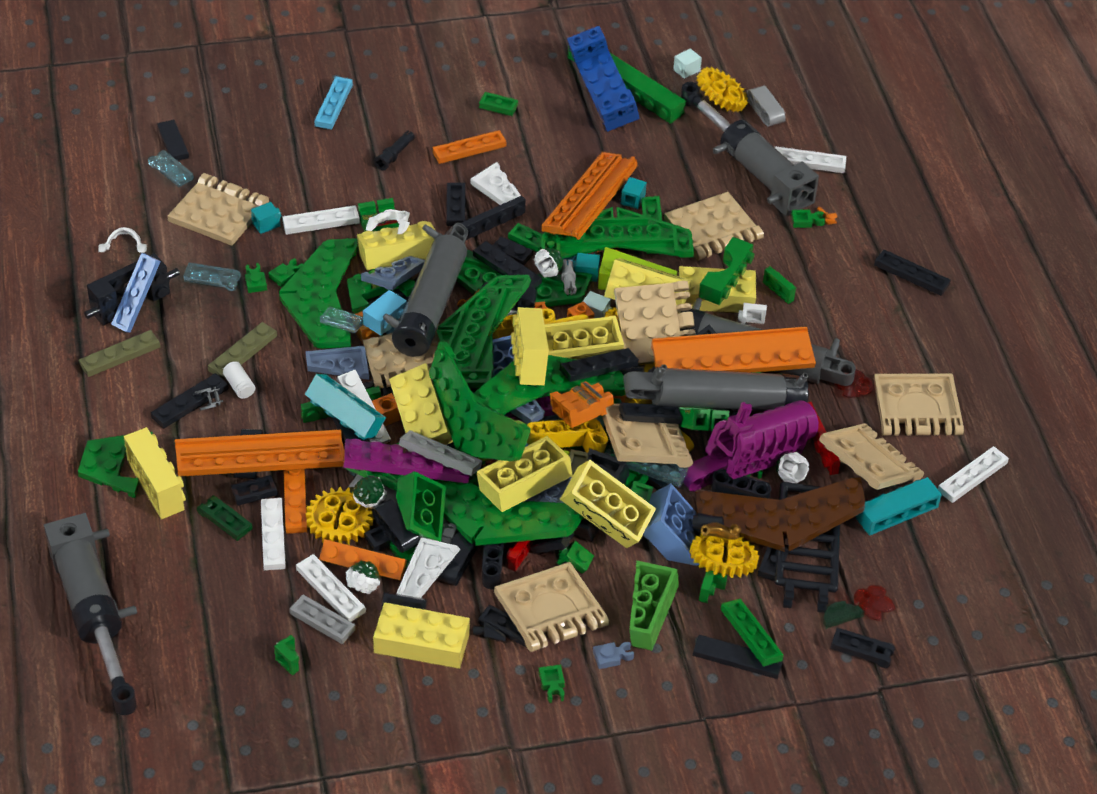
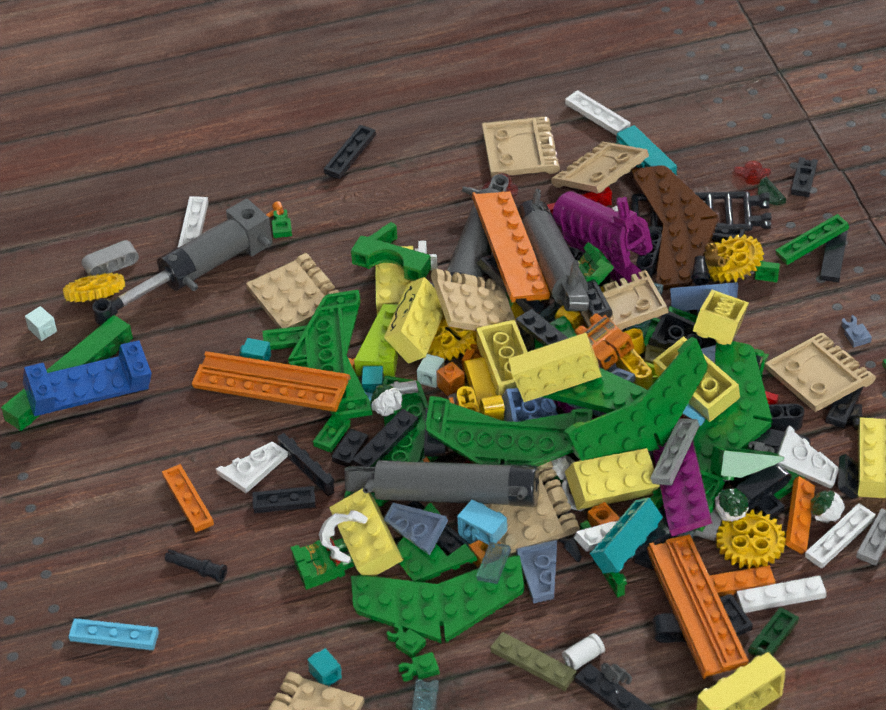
camera: 90 degrees left, 0 degrees up
(320, 219) = (320, 617): white plate -> none
(498, 103) = (111, 479): green plate -> none
(652, 598) = (801, 303): bright green wedge -> none

